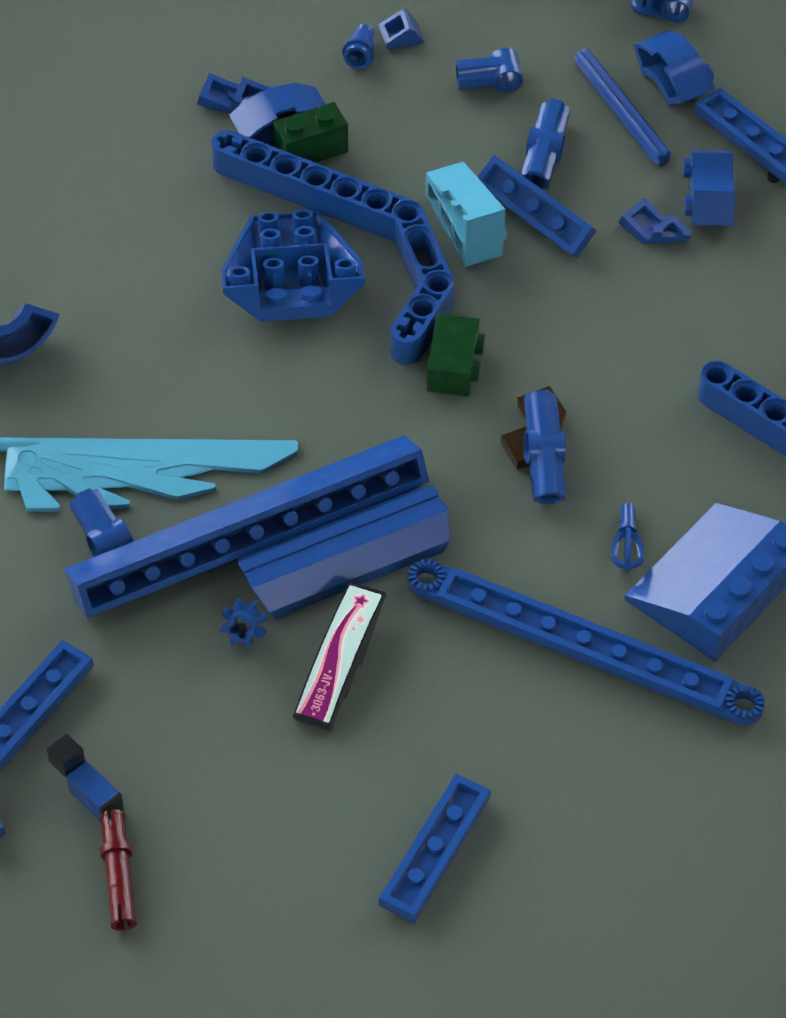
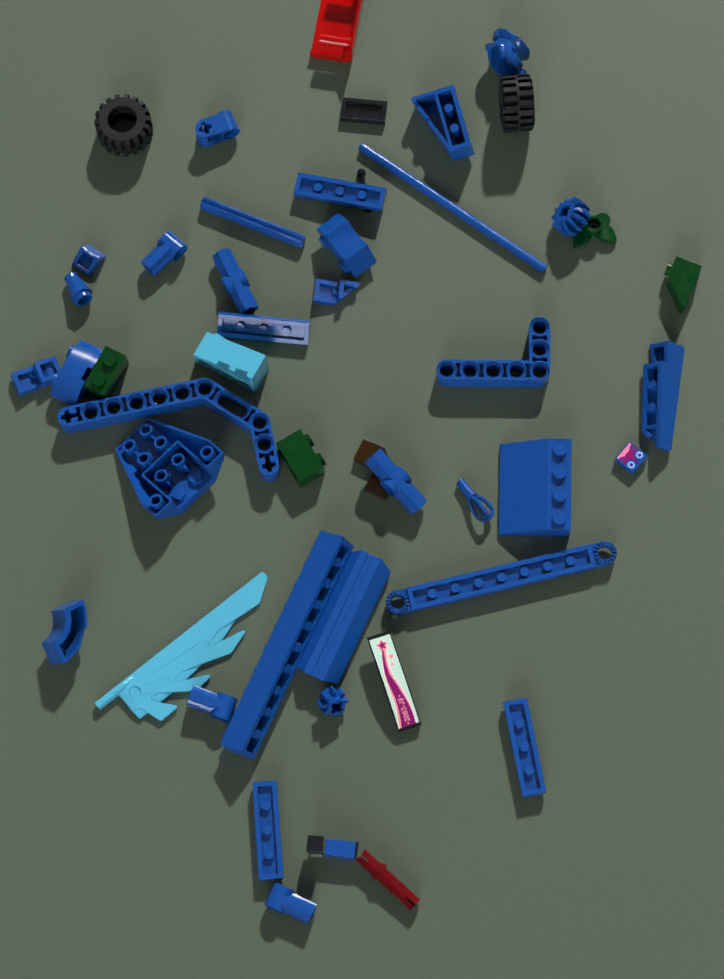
camera: 35 degrees left, 20 degrees up
(674, 67) = (263, 176): blue brick -> none

